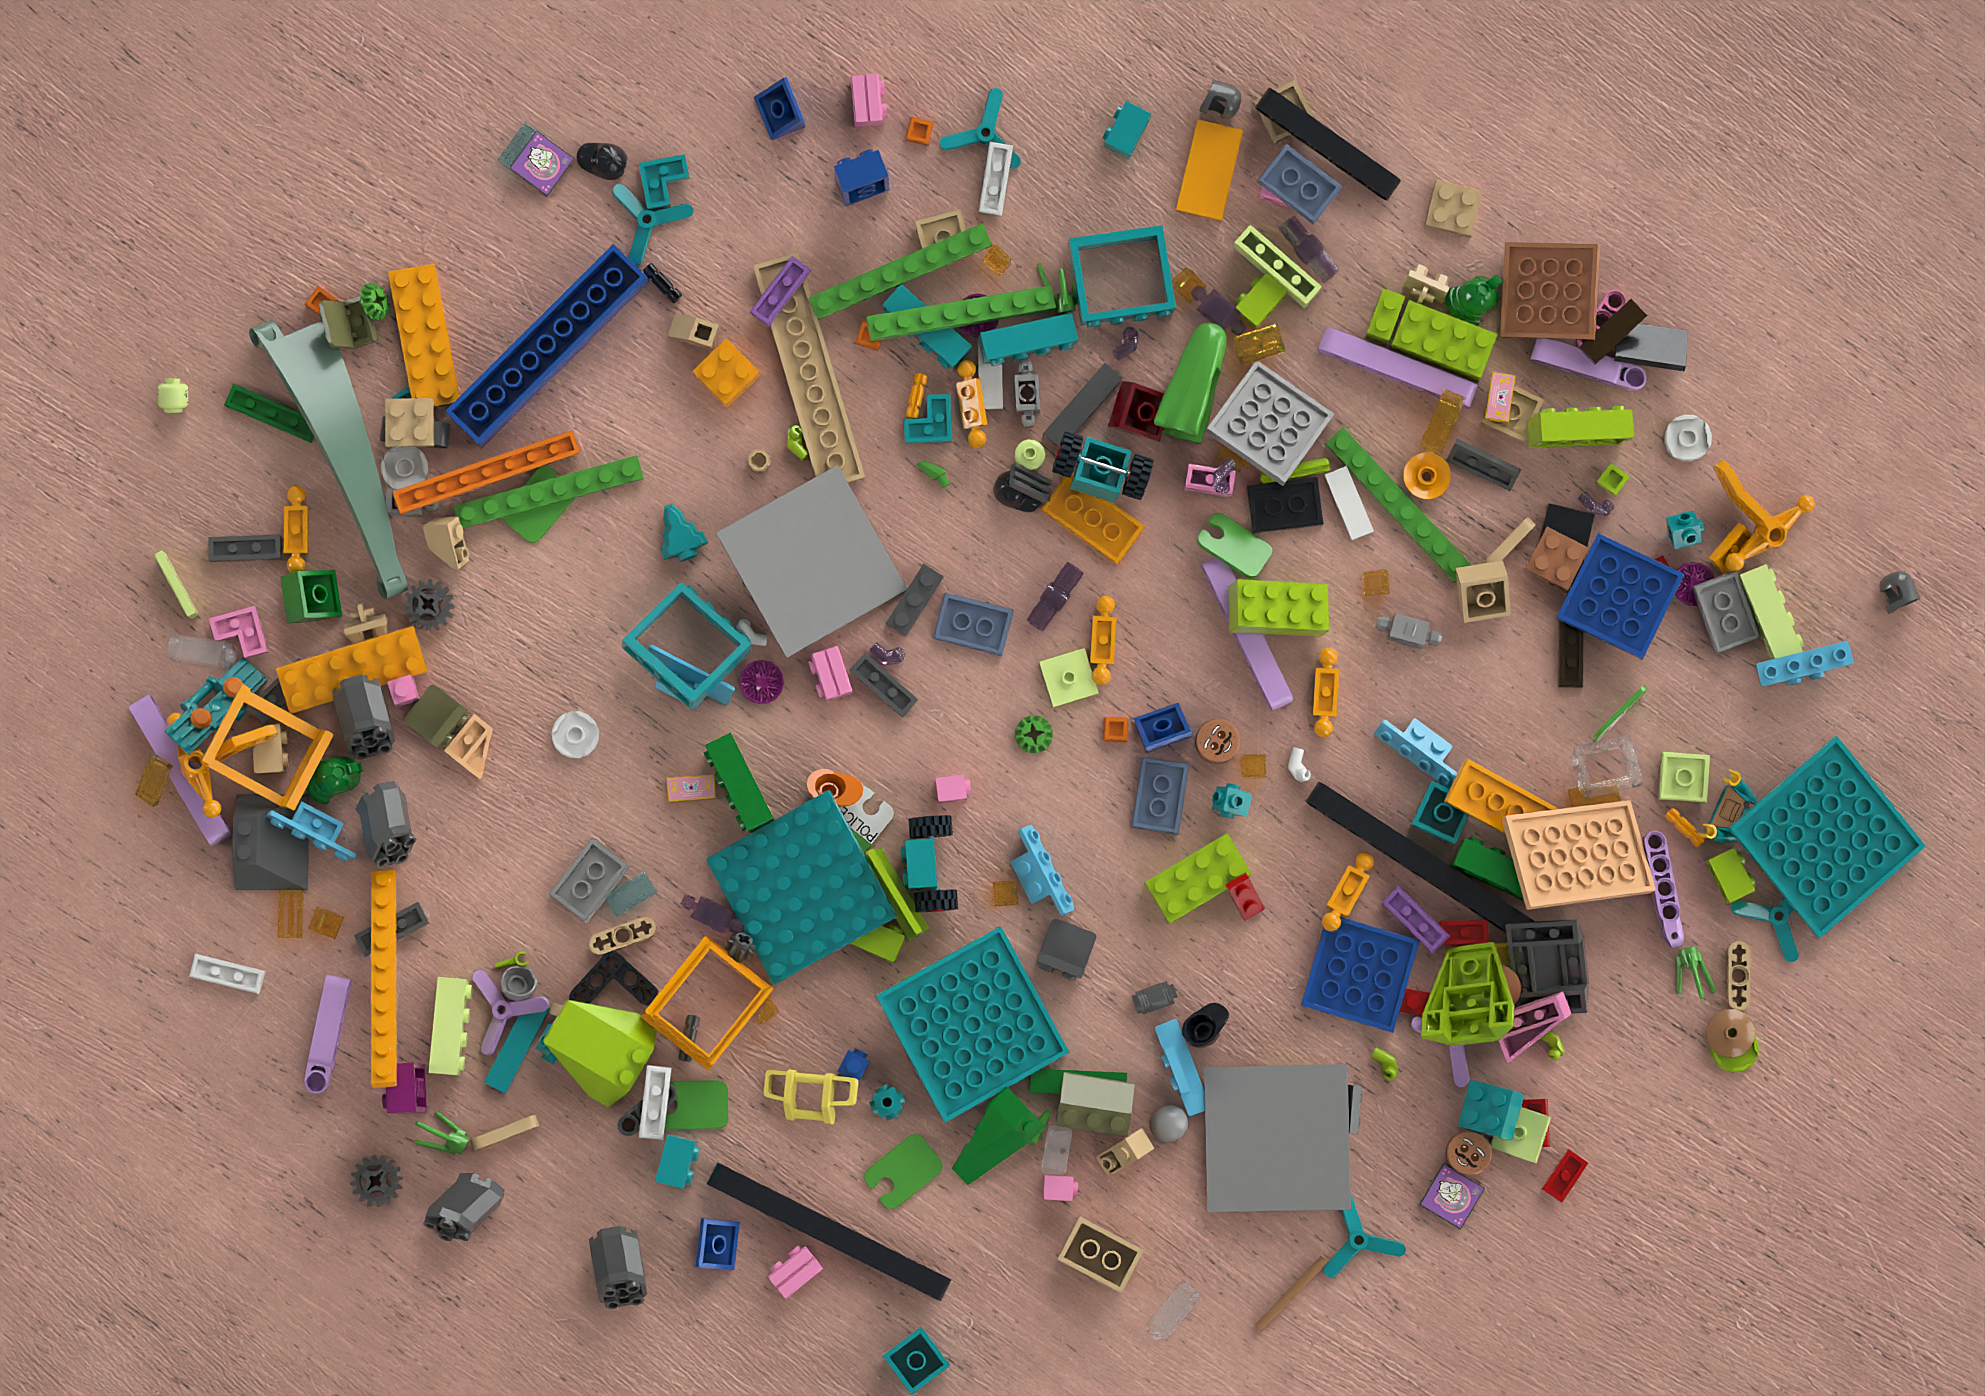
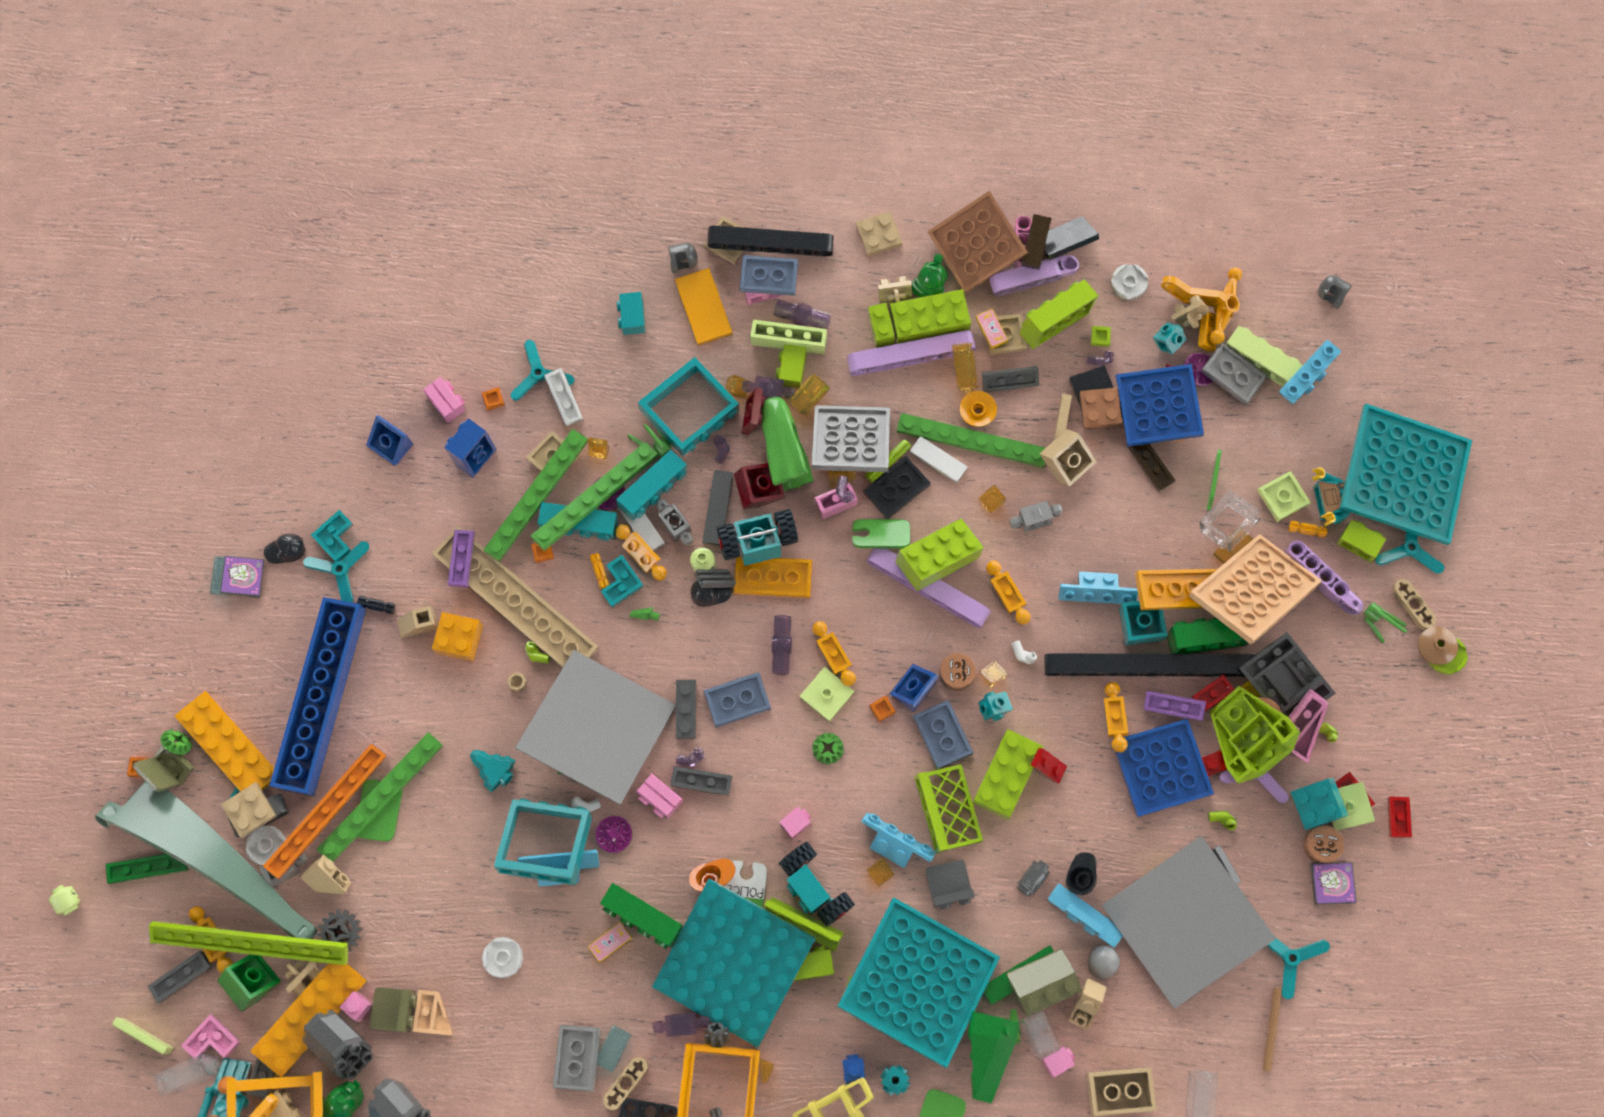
camera: 25 degrees left, 10 degrees down
(333, 559) = (248, 943): none -> lime plate
(1095, 870) = (932, 813): none -> lime fence
(1180, 330) = (752, 414): none -> dark red plate
(1725, 520) = (1190, 315): none -> tan hips

